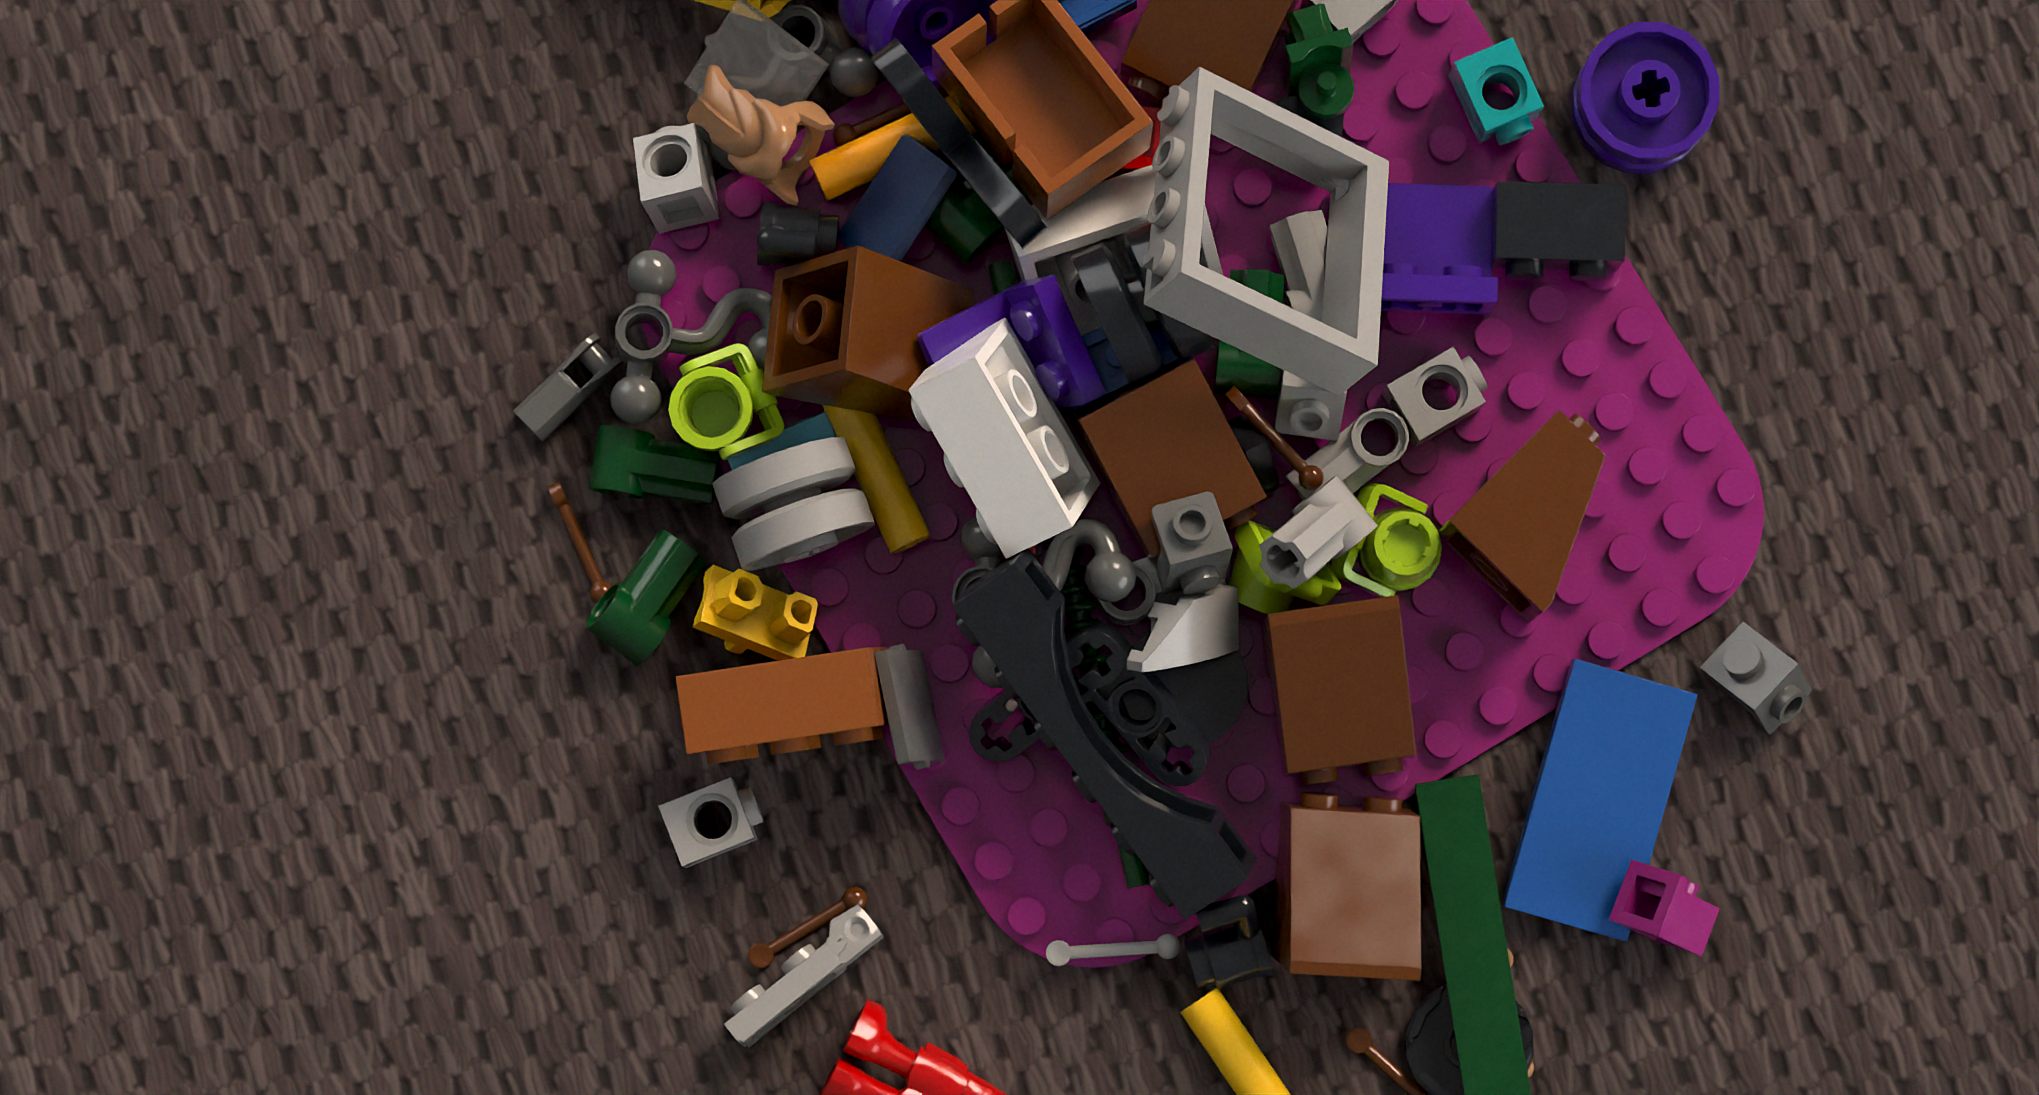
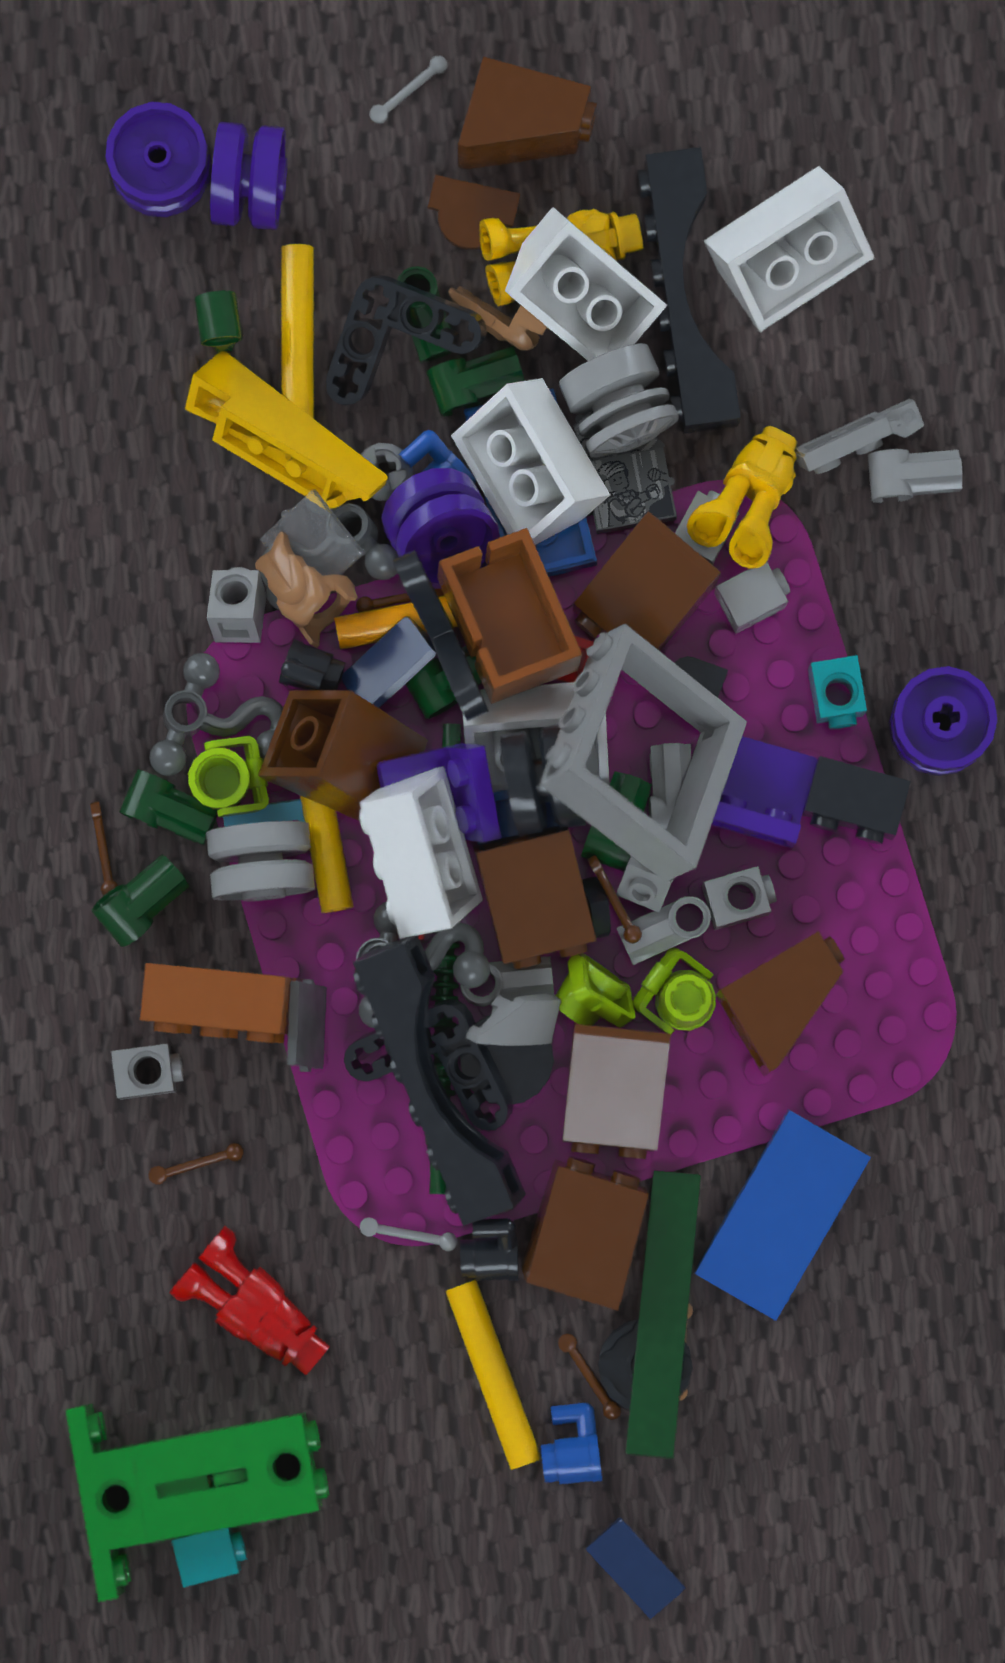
camera: 10 degrees right, 0 degrees up
(559, 396) = (114, 739): dark grey bar -> none
(754, 615) = (213, 932): yellow hips -> none
(805, 976) = (185, 1198): light grey hinge -> none
(1192, 544) = (534, 960): dark grey bracket -> none
(1318, 63) = (713, 640): dark green hips -> none
(1319, 531) = (627, 974): light grey piece -> none
(1664, 908) = (807, 1303): magenta brick -> none
(1758, 677) = (918, 1156): dark grey bracket -> none

